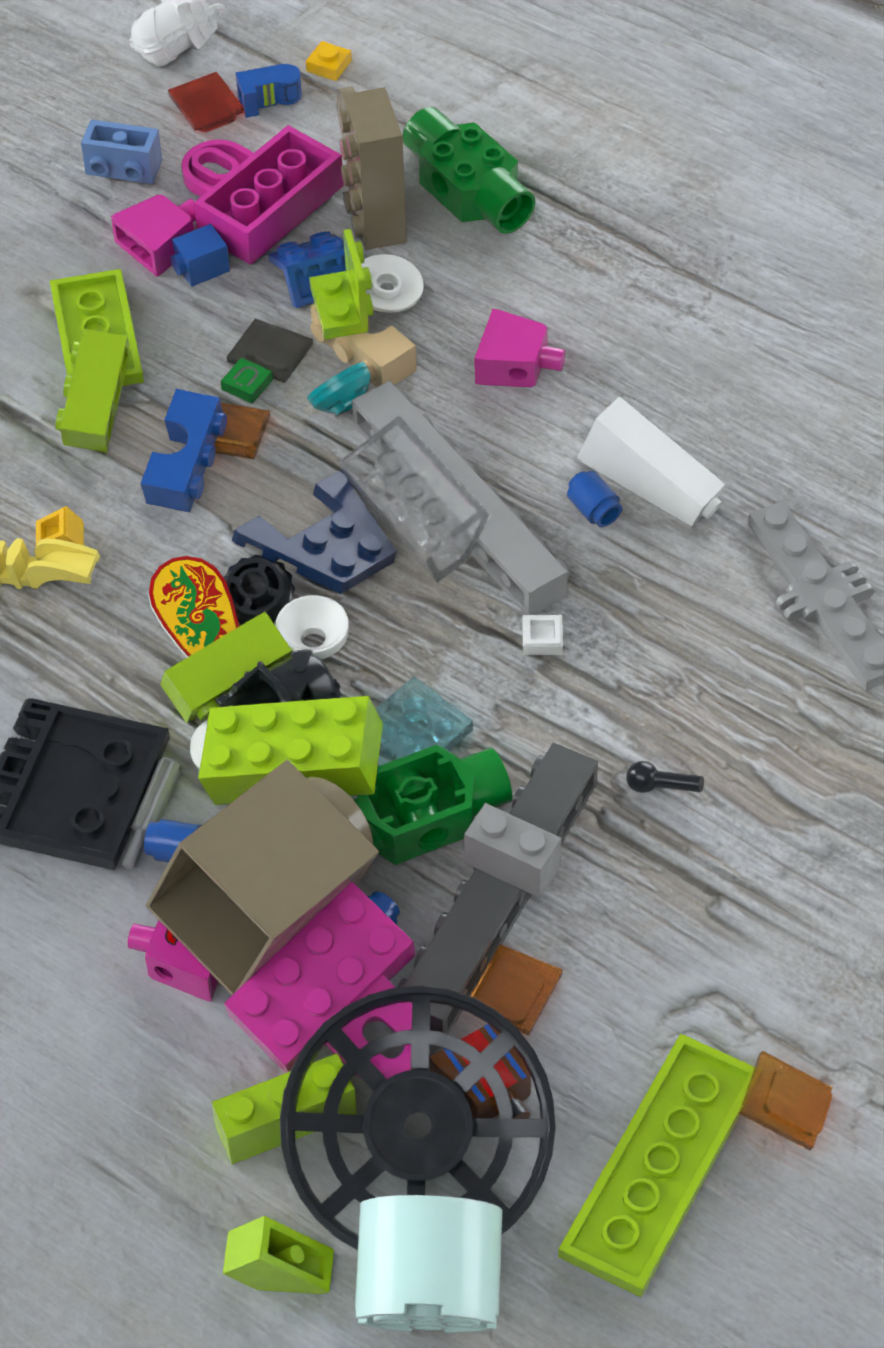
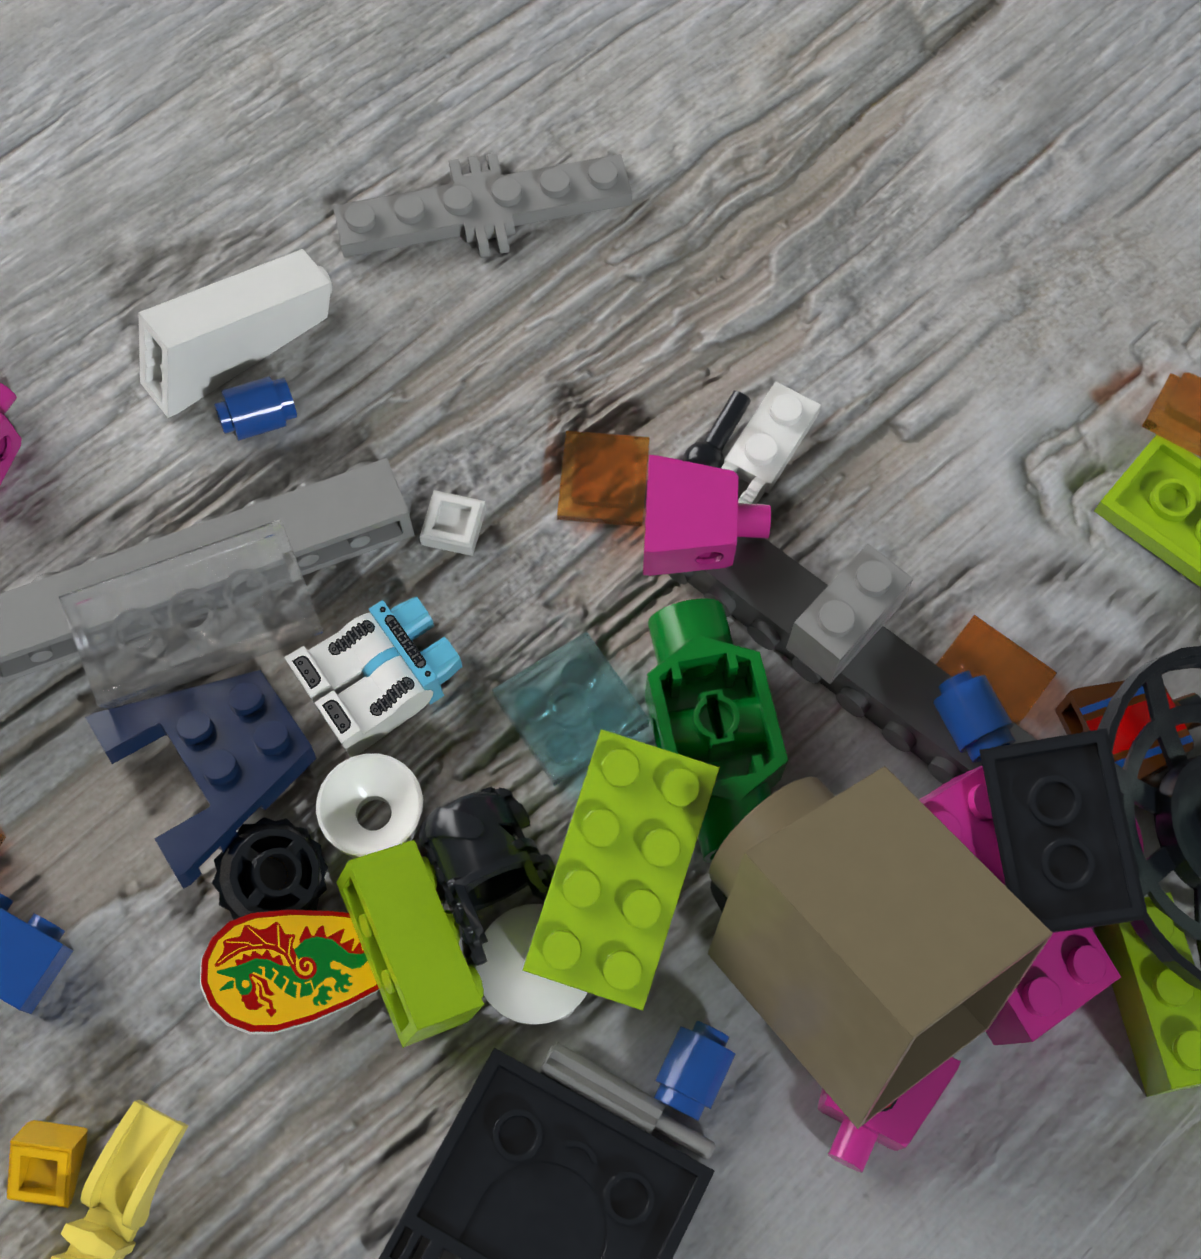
camera: 80 degrees left, 15 degrees up
(361, 972) = (1064, 831): none -> black tile
(408, 610) = (373, 674): none -> hips
(455, 942) = (973, 714): none -> blue brick
(563, 746) = (695, 517): none -> dark pink torso
(604, 713) = (603, 478): none -> clear orange piece
(662, 810) = (770, 440): none -> white hinge

